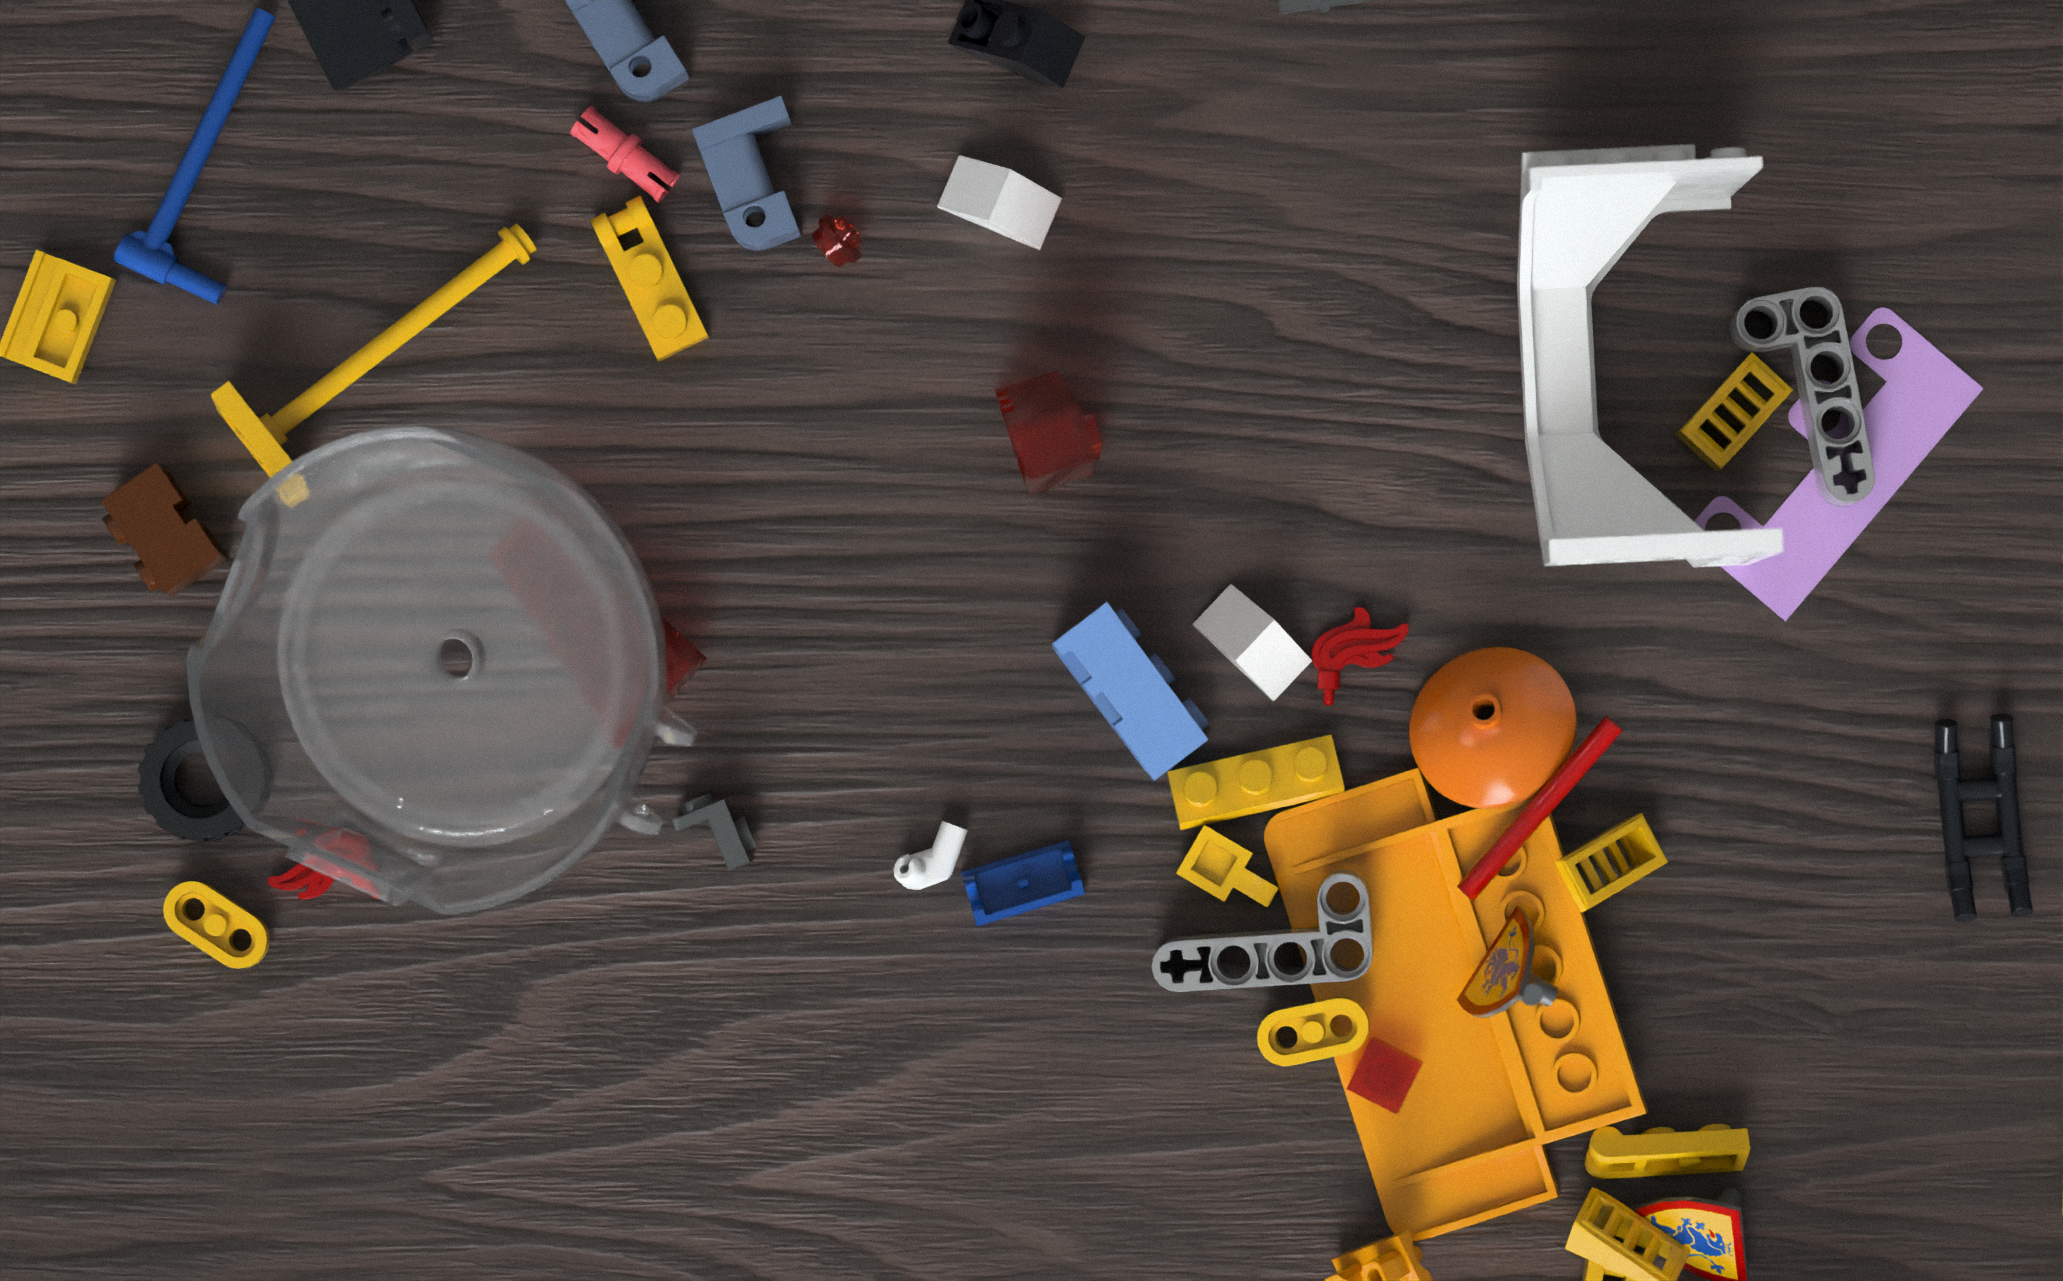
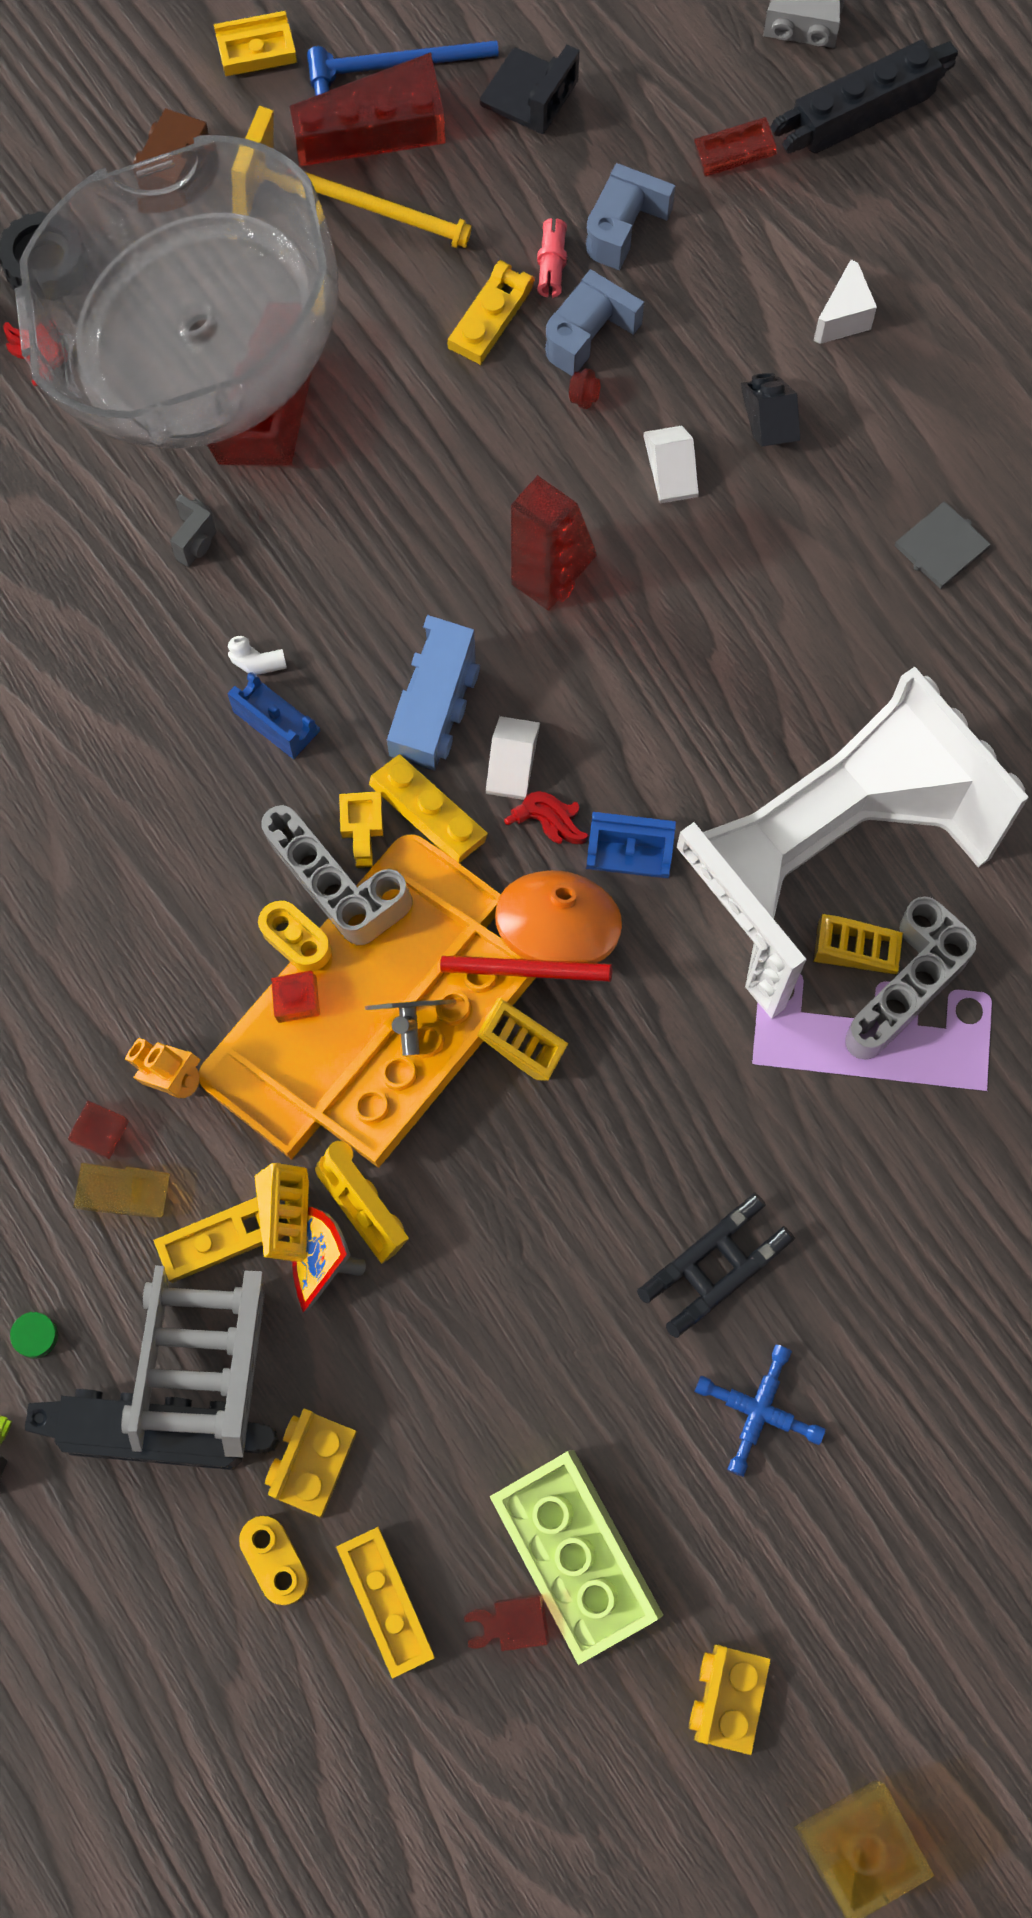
camera: 60 degrees right, 15 degrees down
(276, 235) = (371, 115): none -> clear red wedge
(1454, 584) = (631, 845): none -> blue hinge

